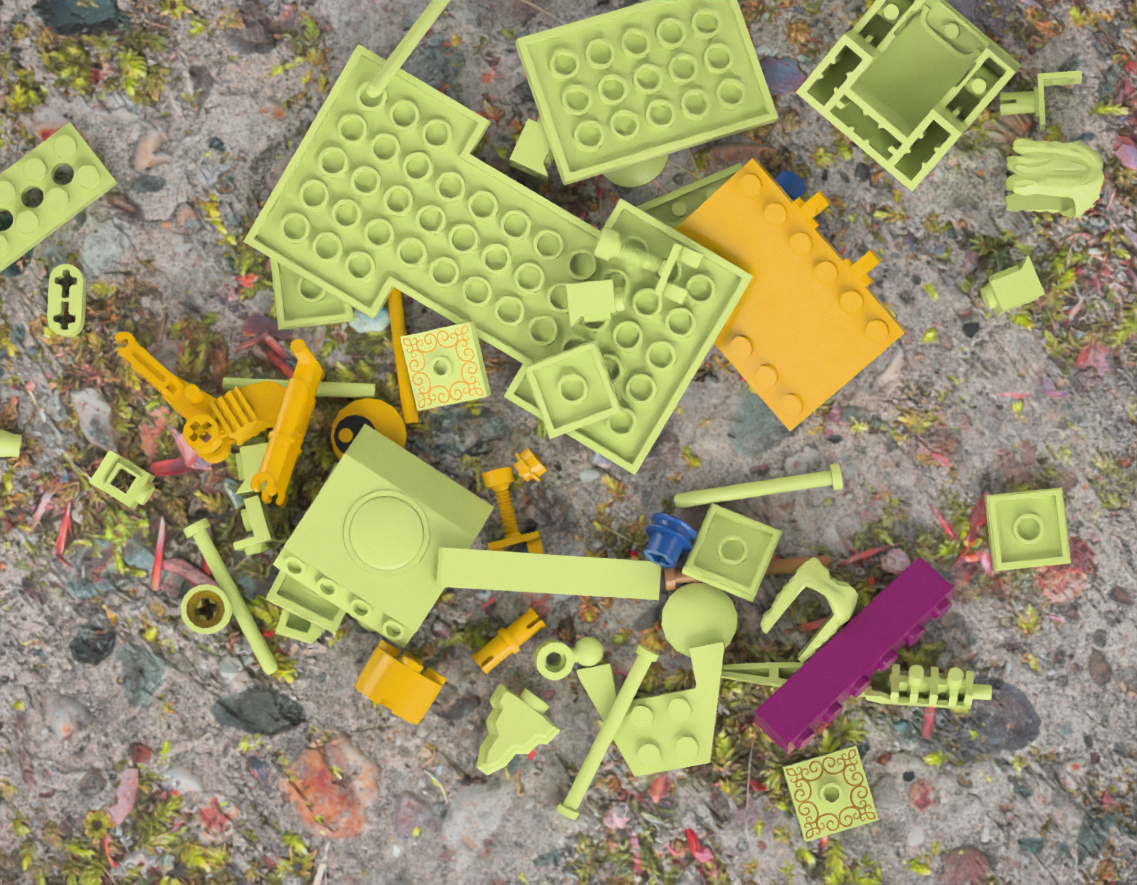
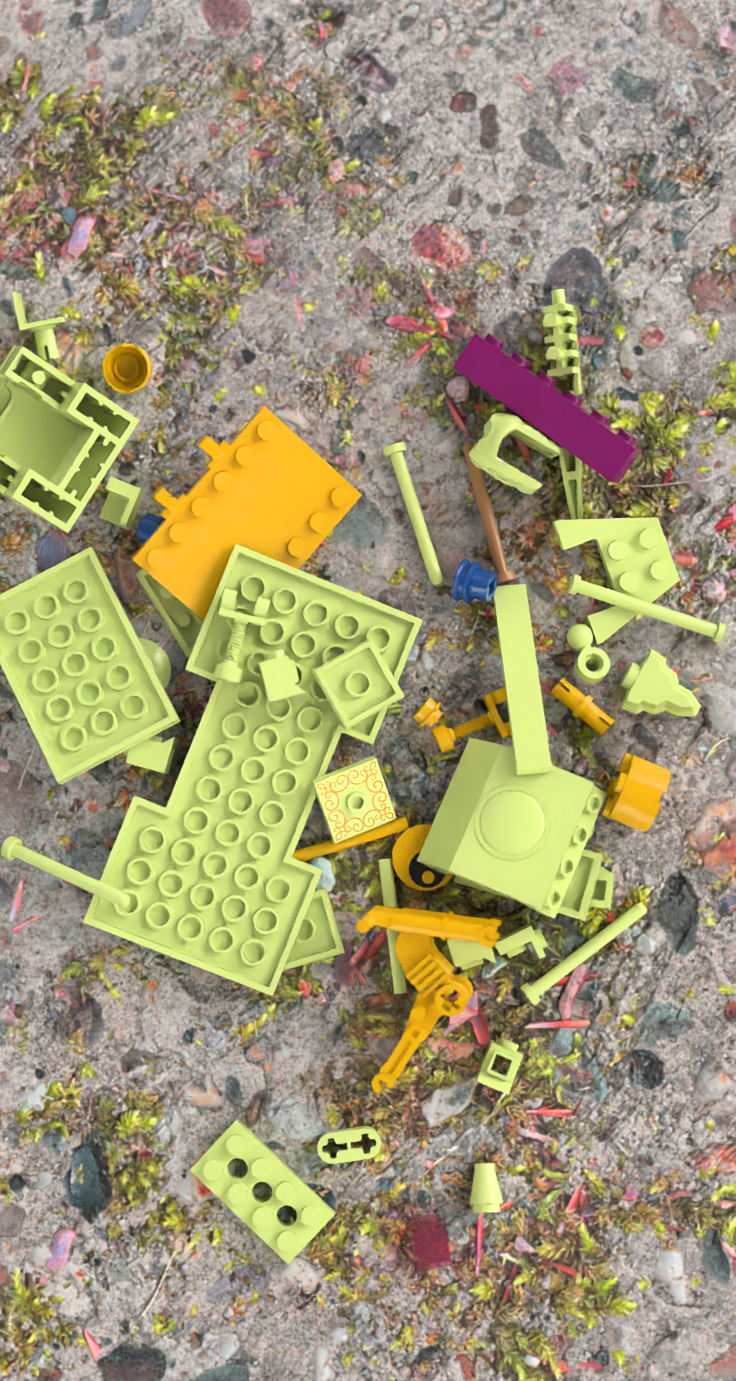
camera: 90 degrees left, 0 degrees up
(196, 599) = (613, 975): piece -> none
(698, 616) = (534, 547): yellowish green dish -> none
(732, 552) = (474, 527): yellowish green tile -> none
(822, 159) = (121, 503): none -> yellowish green panel
(830, 793) = (664, 413): yellowish green plate -> none
(975, 188) = (127, 368): none -> yellow hair
(1012, 288) = (207, 324): yellowish green window -> none
(1027, 529) = (412, 282): yellowish green tile -> none
(1053, 177) = (108, 302): yellowish green piece -> none

